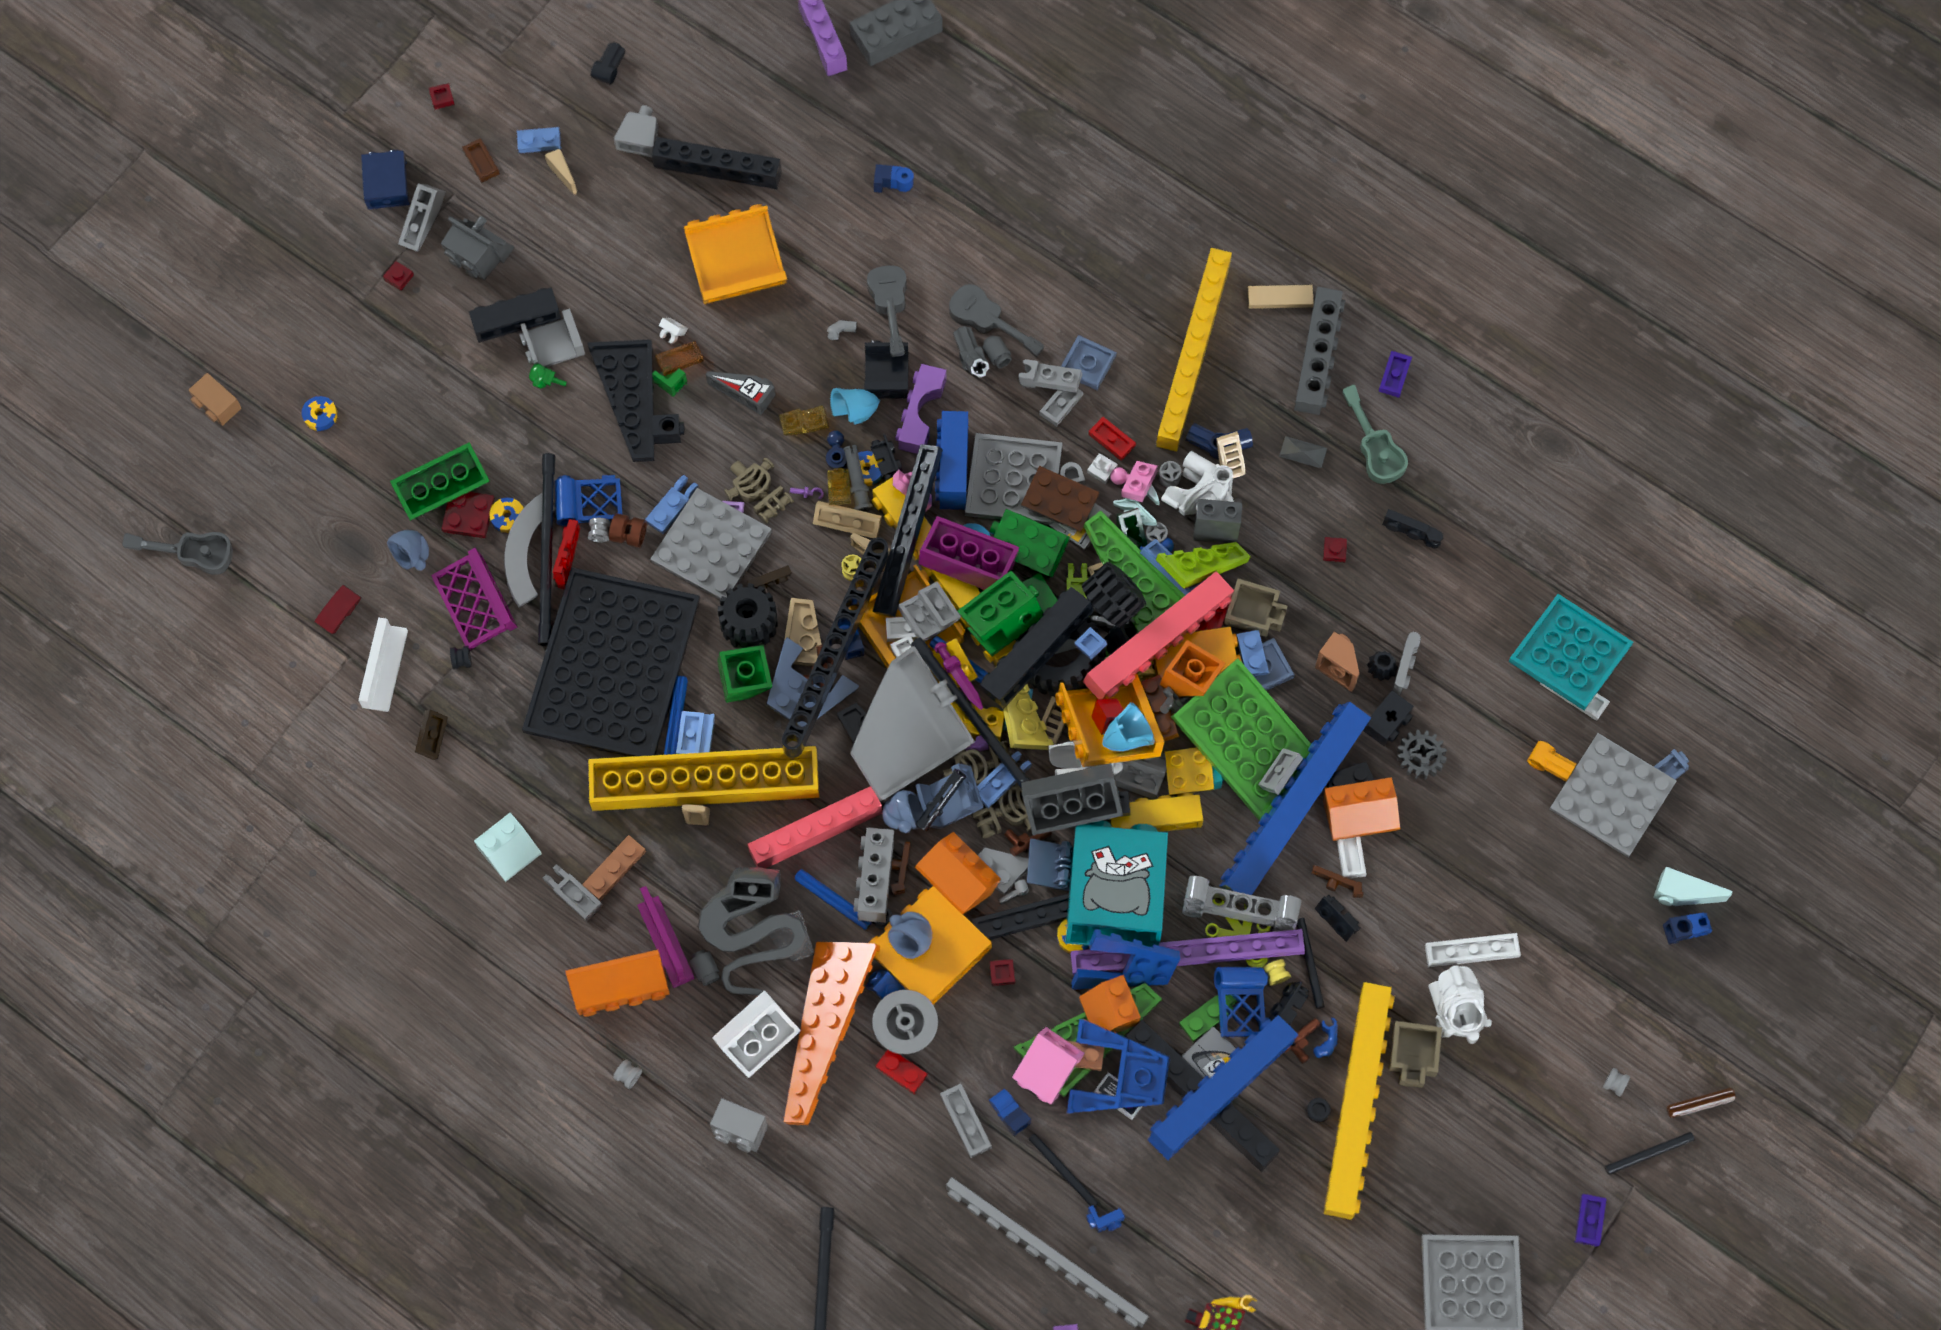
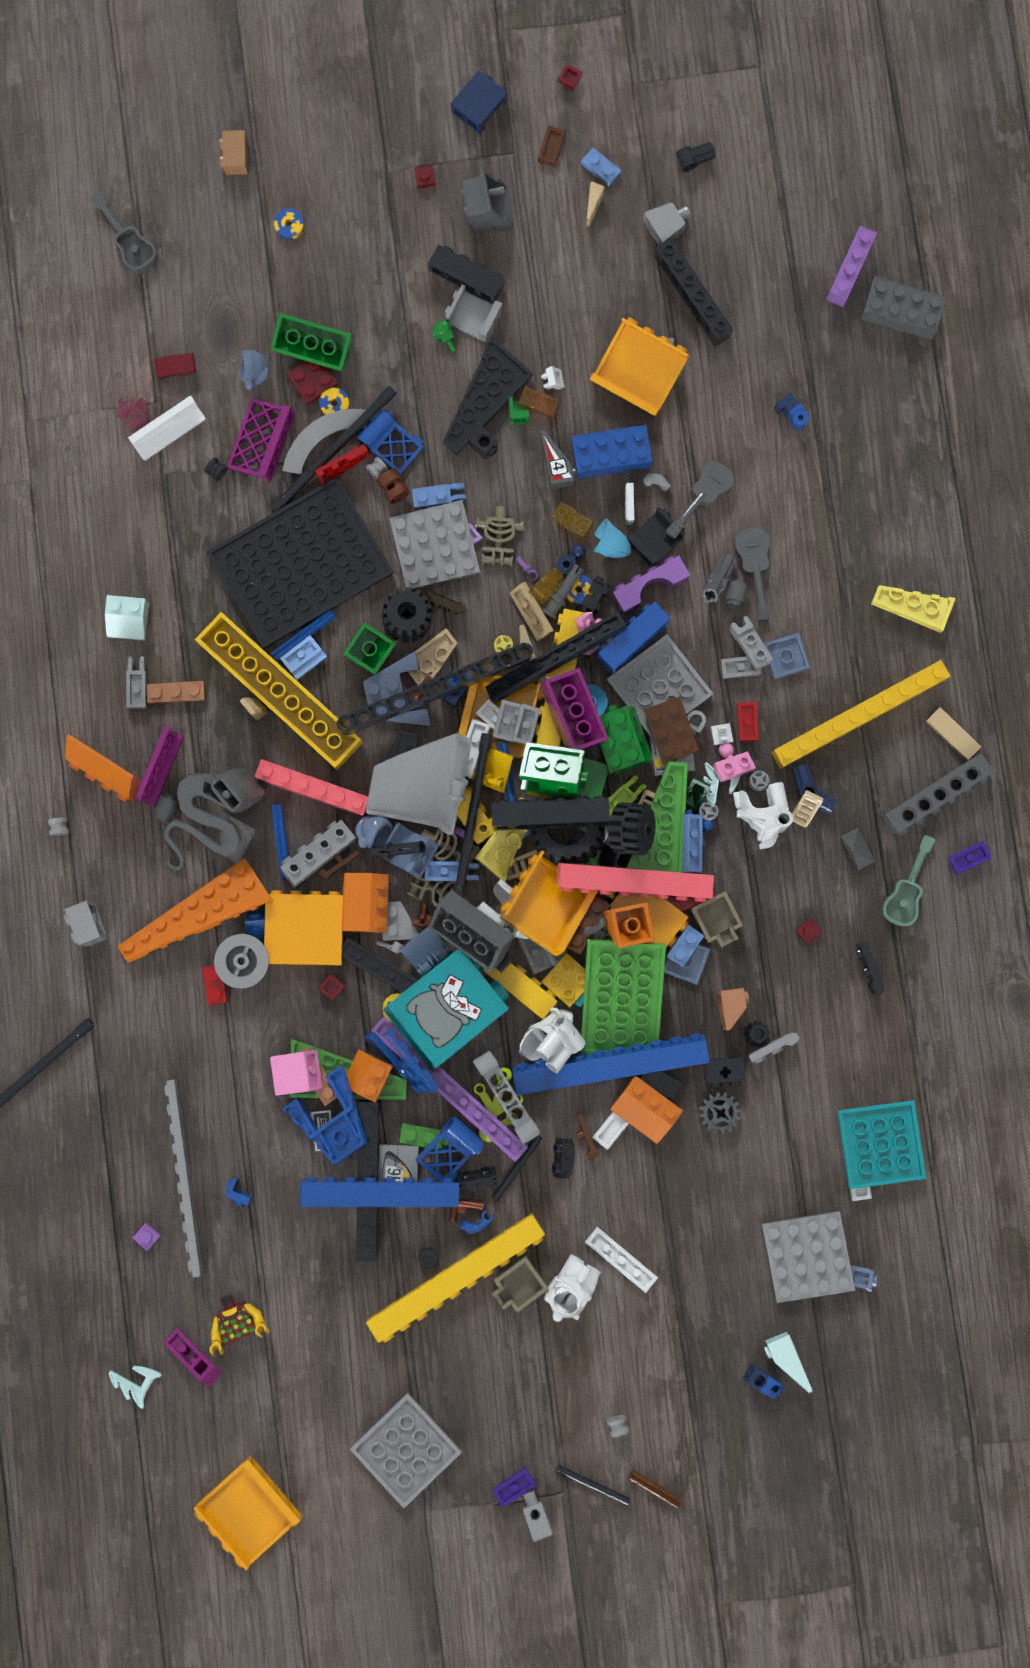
camera: 45 degrees right, 15 degrees up
(339, 676) = (126, 409): none -> clear pink hips
(421, 216) = (476, 149): light grey slope -> none
(431, 734) = (151, 501): dark brown plate -> none
(756, 1034) = (152, 878): white slope -> none
(780, 338) = (611, 451): none -> blue brick
(838, 364) = (629, 503): none -> white tile
(910, 934) = (296, 913): sand blue piece -> none
(952, 666) = (492, 771): magenta sword -> none
(965, 1120) = (219, 1053): light grey plate -> none
(1010, 1112) = (250, 1074): leg -> none
(1063, 1170) = (245, 1139): black bar -> none
(1090, 643) = (583, 846): medium blue plate -> none
(1105, 712) = (548, 901): red brick -> none
(1128, 730) = (547, 926): medium azure helmet -> none
(1154, 228) = (923, 609): none -> light yellow wing
(1201, 563) = (714, 860): lime wing -> none
(1217, 521) = (752, 842): dark grey panel -> none
(1238, 823) = (559, 1043): none -> white helmet
(1277, 972) = (490, 1153): light yellow wheel -> none
(1280, 771) = (619, 1038): light grey plate -> none
(1545, 758) = (792, 1193): light orange piece -> none
(1644, 1223) = (539, 1526): none -> light grey torso

